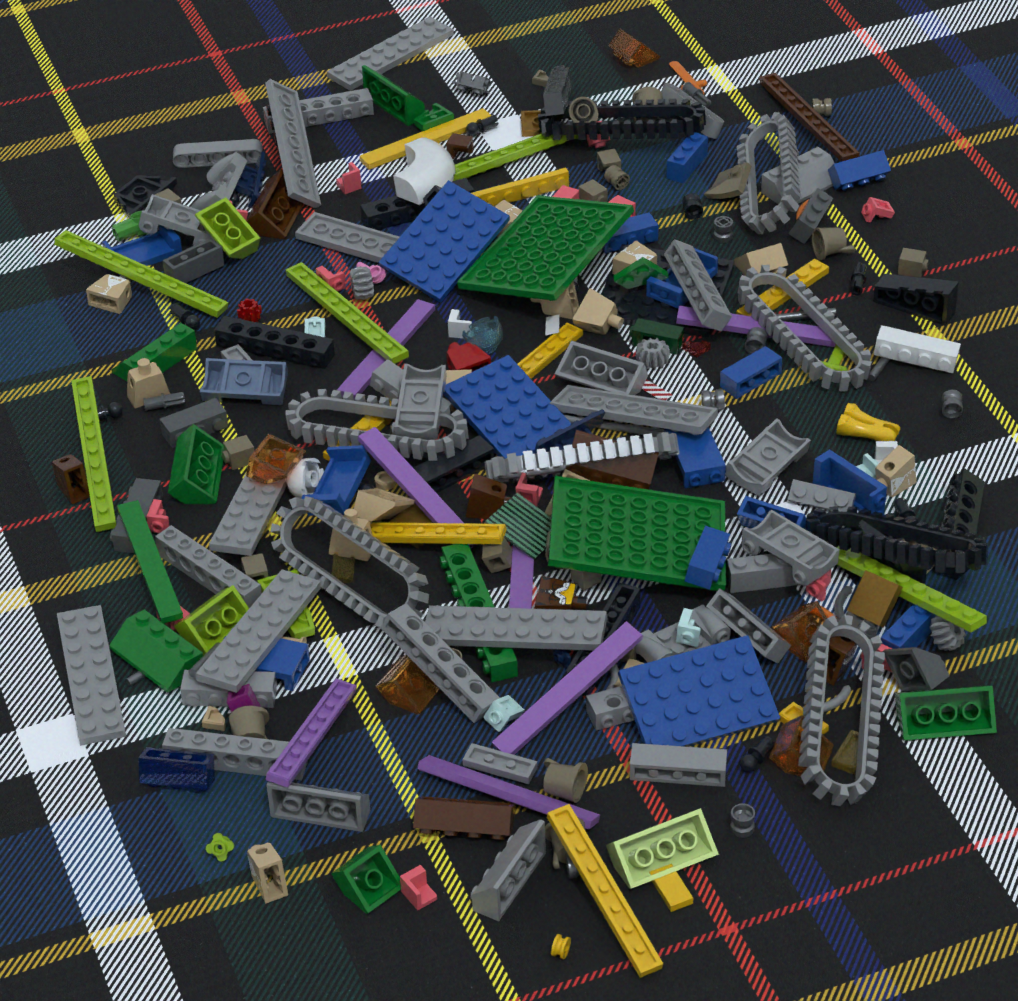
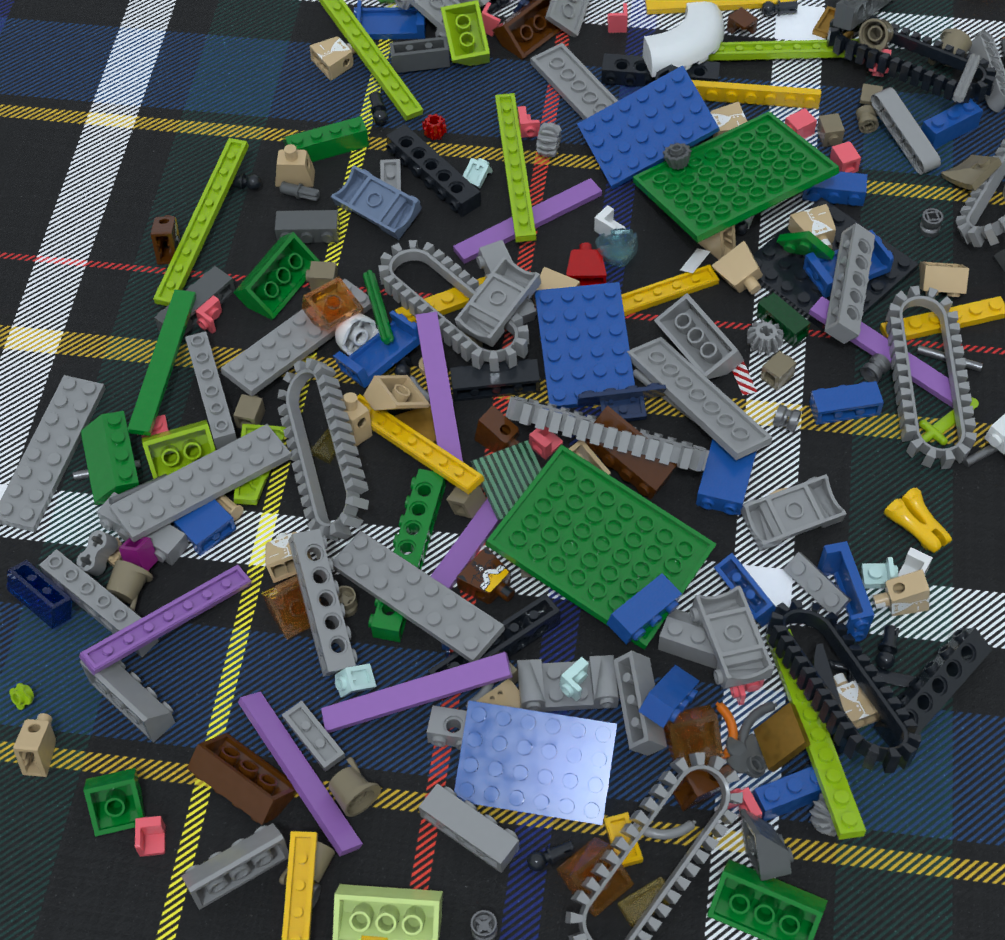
camera: 30 degrees right, 15 degrees up
(205, 714) = (95, 556): none -> light grey axle
(325, 461) = (378, 307): none -> green axle
(376, 652) = (279, 558): none -> tan torso
(377, 272) = (571, 132): bright pink plate -> none
(487, 250) = (677, 155): none -> dark grey piece
(655, 171) = (905, 131): none -> light grey beam
(680, 371) = (778, 370): none -> dark tan brick
(684, 113) = (966, 78): none -> light grey axle
(692, 206) = (918, 183): black wheel -> none
(696, 348) = (815, 348): clear red tile -> none
(771, 607) = (670, 697): none -> blue brick

